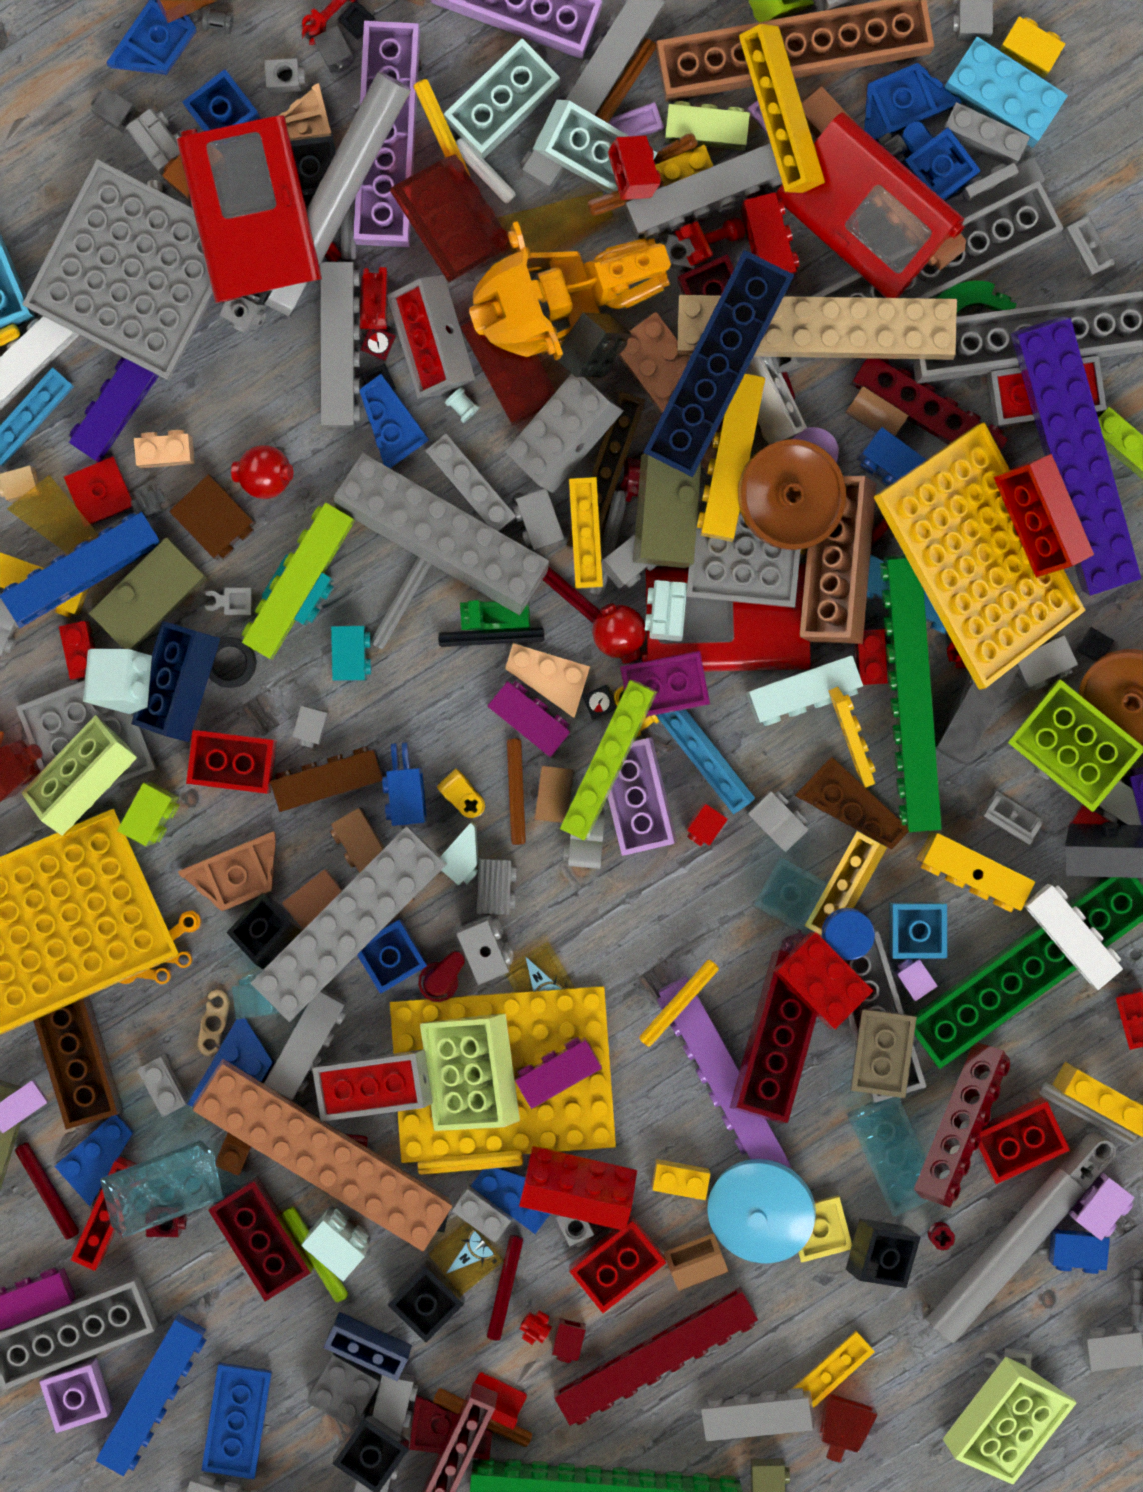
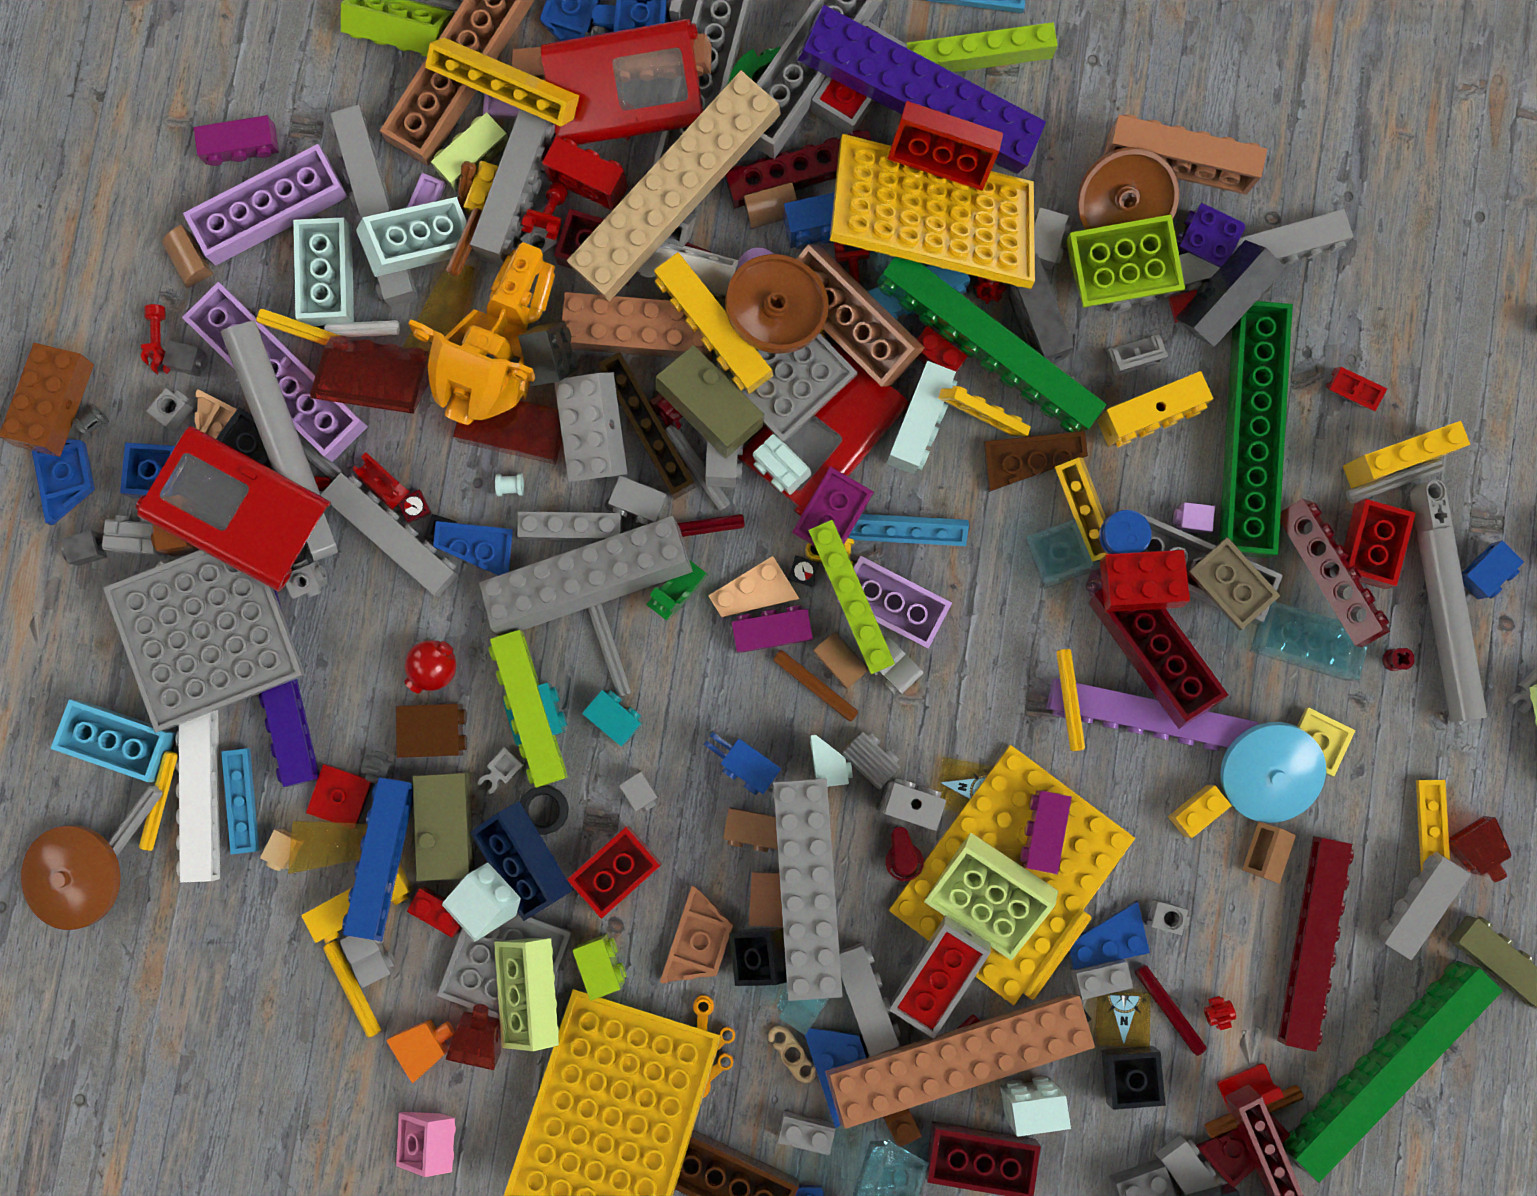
camera: 50 degrees left, 5 degrees down
(164, 450) = (351, 723): light nougat brick -> none
(300, 1232) = (1001, 1126): lime axle -> none
(326, 780) = (689, 814): reddish brown brick -> none
(354, 19) = (178, 328): black tile -> none
(368, 1346) = (1130, 1151): dark blue brick -> none
(392, 956) = (858, 879): blue brick -> none
(431, 336) = (441, 463): light grey brick -> none
(458, 790) = (779, 726): yellow piece -> none
(489, 637) = (690, 607): black axle -> none
(568, 1340) = (1249, 996): dark red brick -> none
(578, 1188) = (1145, 890): red brick -> none
(585, 532) = (675, 472): yellow plate -> none
(617, 1265) = (1224, 911): red brick -> none
(619, 632) = (766, 513): red brick -> none
(626, 80) = (388, 174): dark orange axle -> none
(634, 167) = (450, 215): red brick -> none
(705, 825) = (957, 570): red brick -> none
(718, 363) = (638, 268): dark blue brick -> none
(777, 820) = (998, 518): light grey brick -> none
(883, 1253) = (1378, 711): black brick -> none
(917, 930) = (1162, 486): dark azure brick -> none
(1073, 937) = (1263, 378): white brick -> none
(1094, 644) = (1062, 196): black tile -> none
(1102, 1206) = (1476, 525): lavender brick -> none

